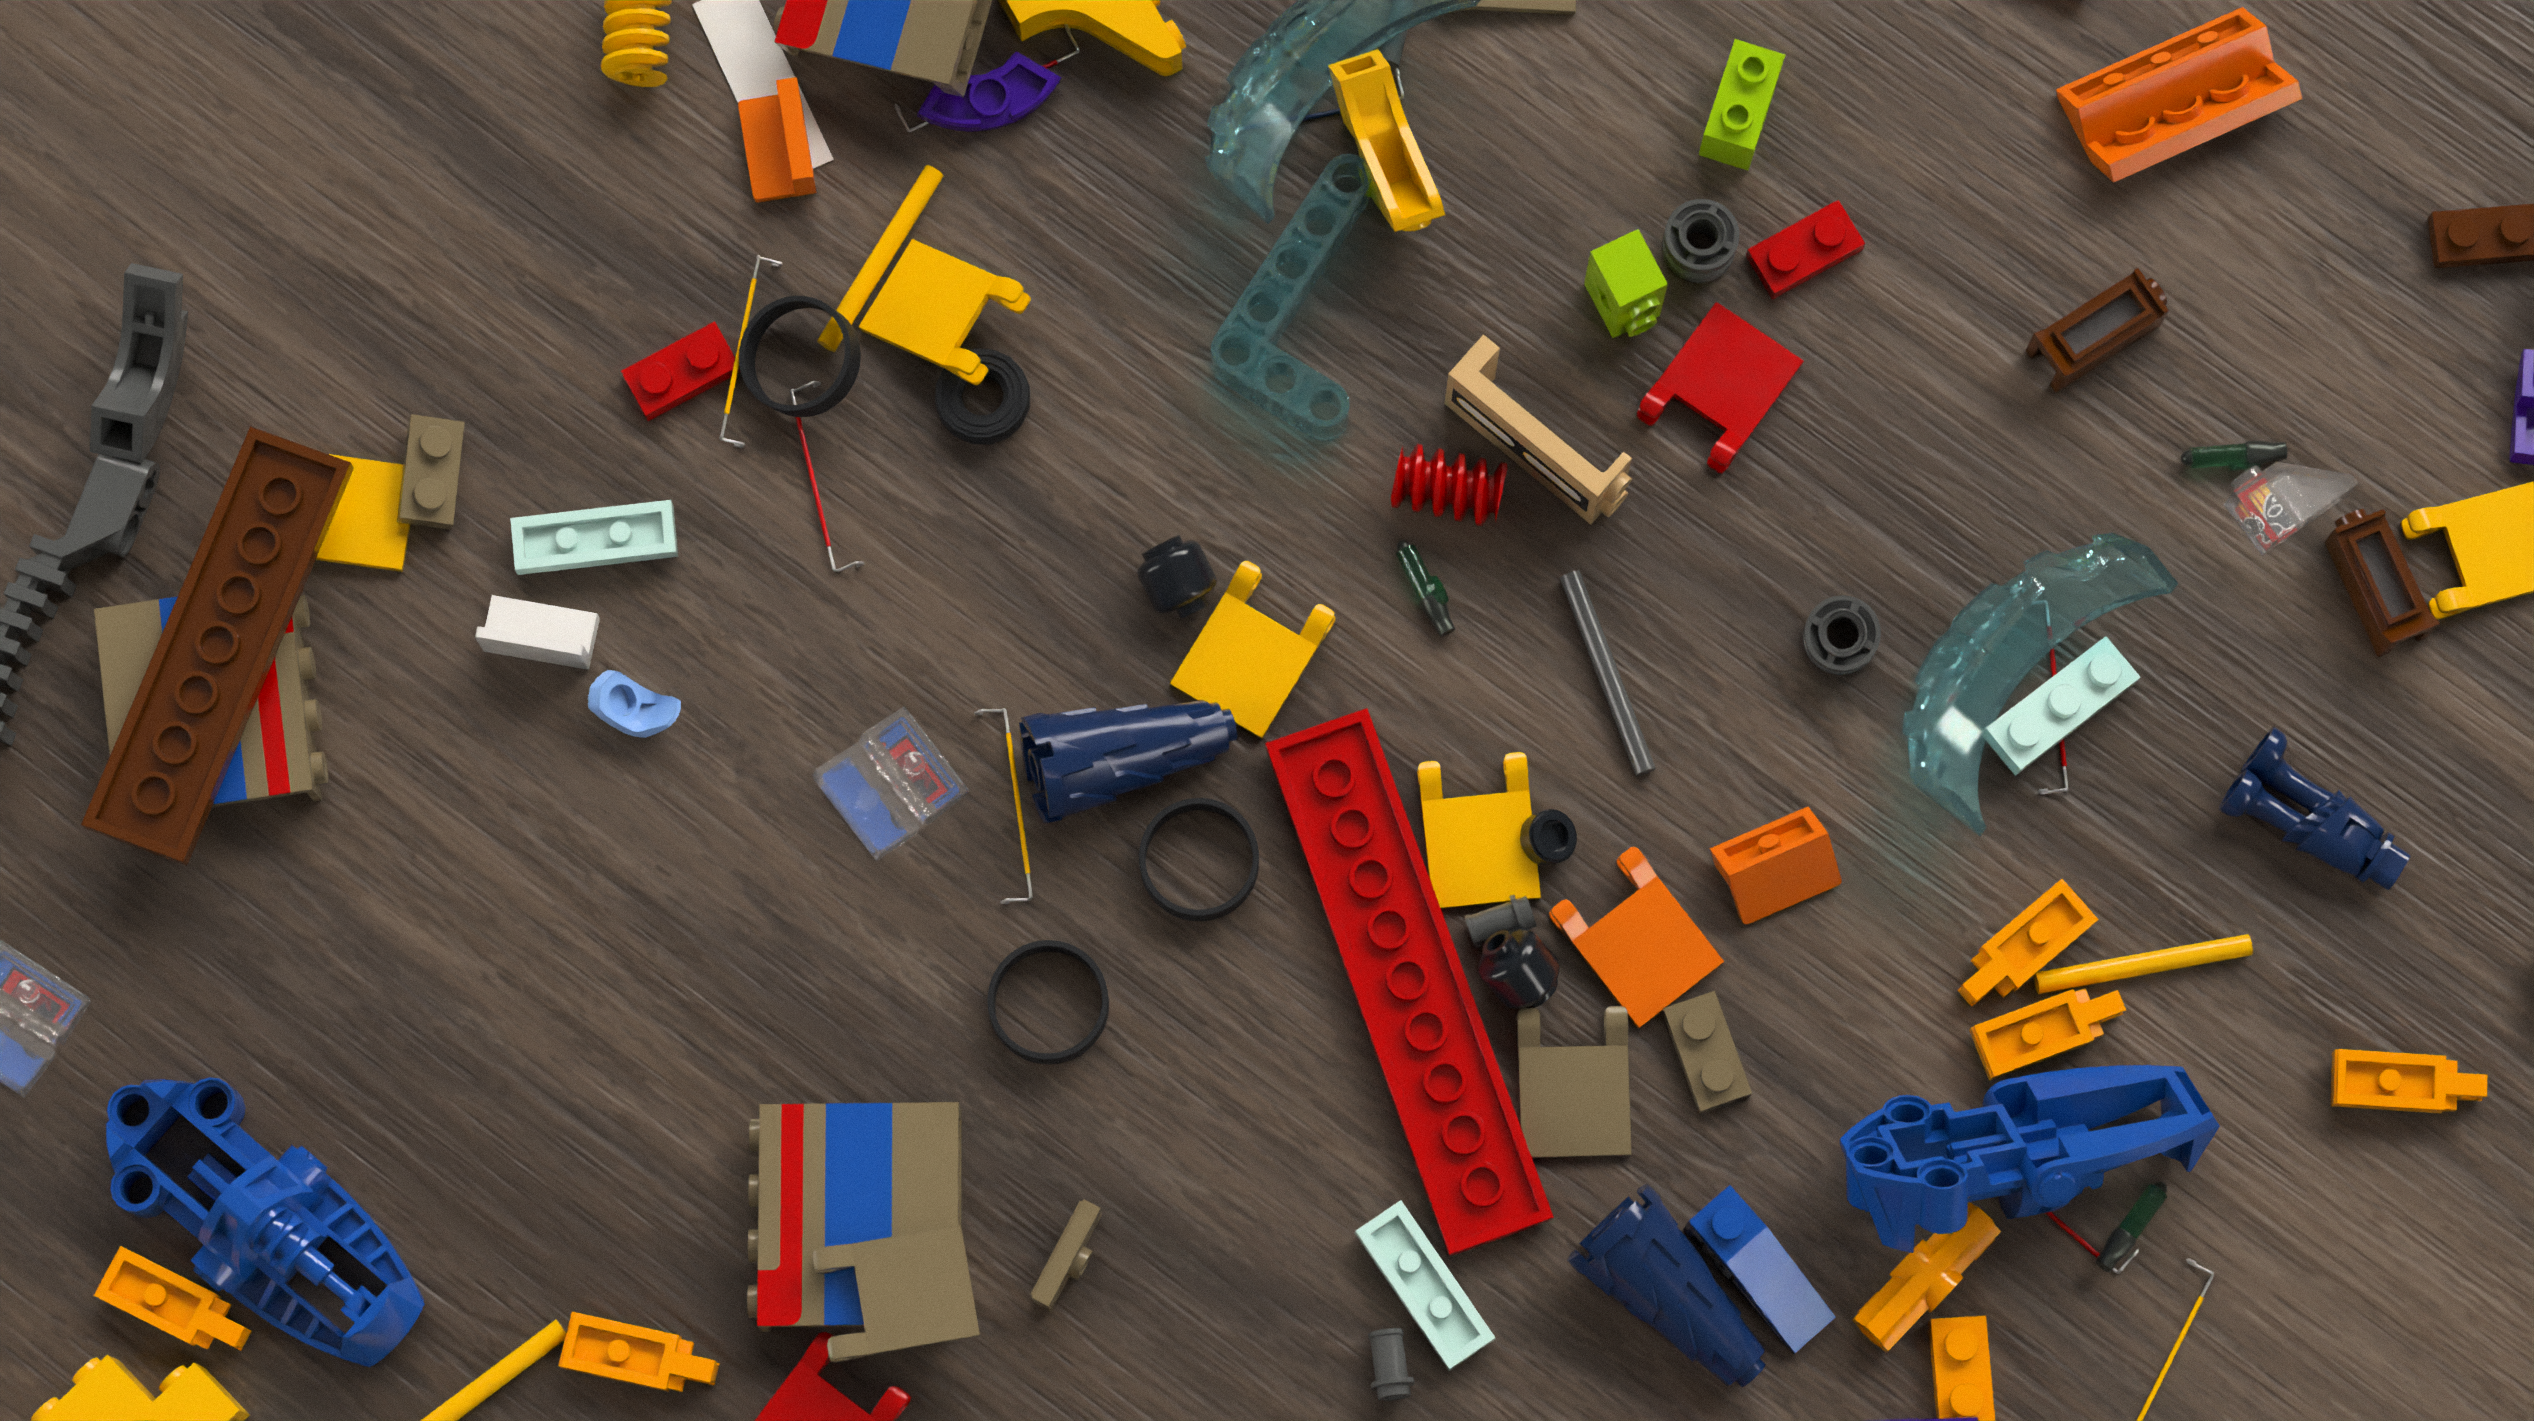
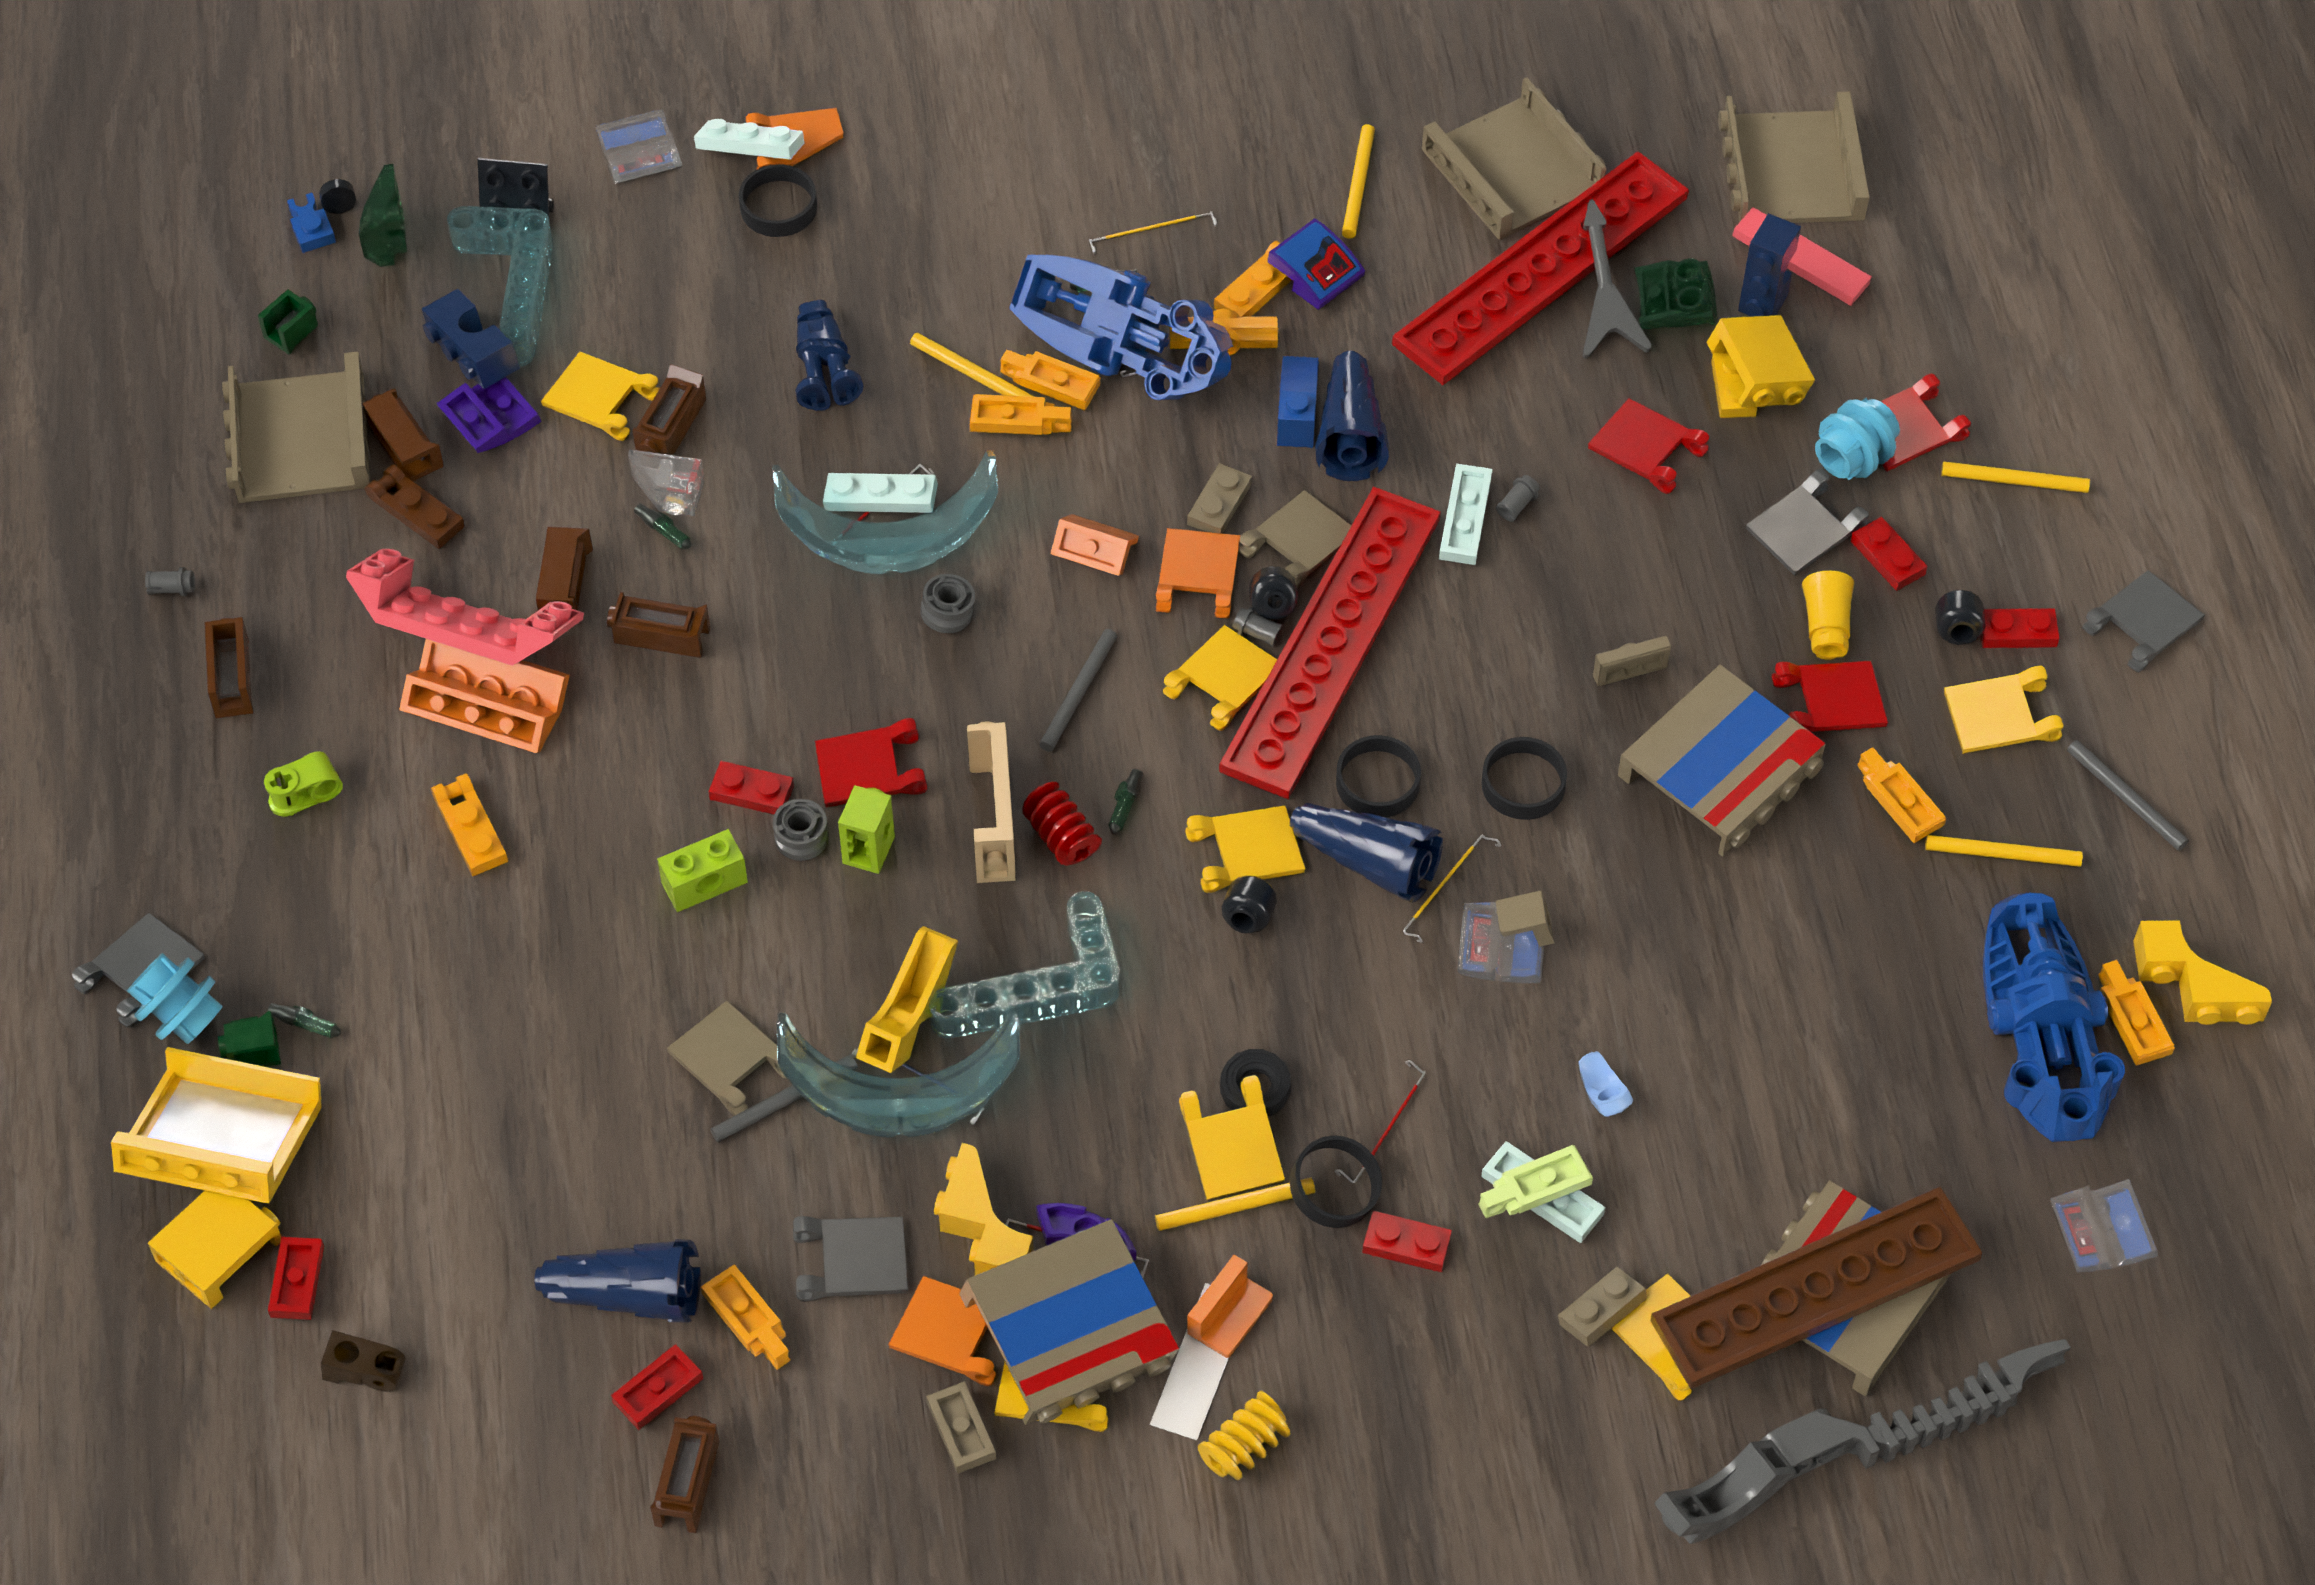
camera: 135 degrees left, 20 degrees down
(539, 632) = (1623, 1170): white panel -> none
(594, 520) = (1537, 1183): none -> yellowish green hinge
(736, 364) = (1297, 1254): yellow piece -> none
(874, 804) = (1526, 914): none -> dark tan panel
(909, 1291) = (1735, 692): dark tan flag -> none
(1548, 837) = (1192, 641): black tile -> none
(2260, 289) = (563, 566): none -> reddish brown window
(2297, 128) = (385, 591): none -> coral slope
(2401, 1082) = (916, 232): light orange hinge -> none

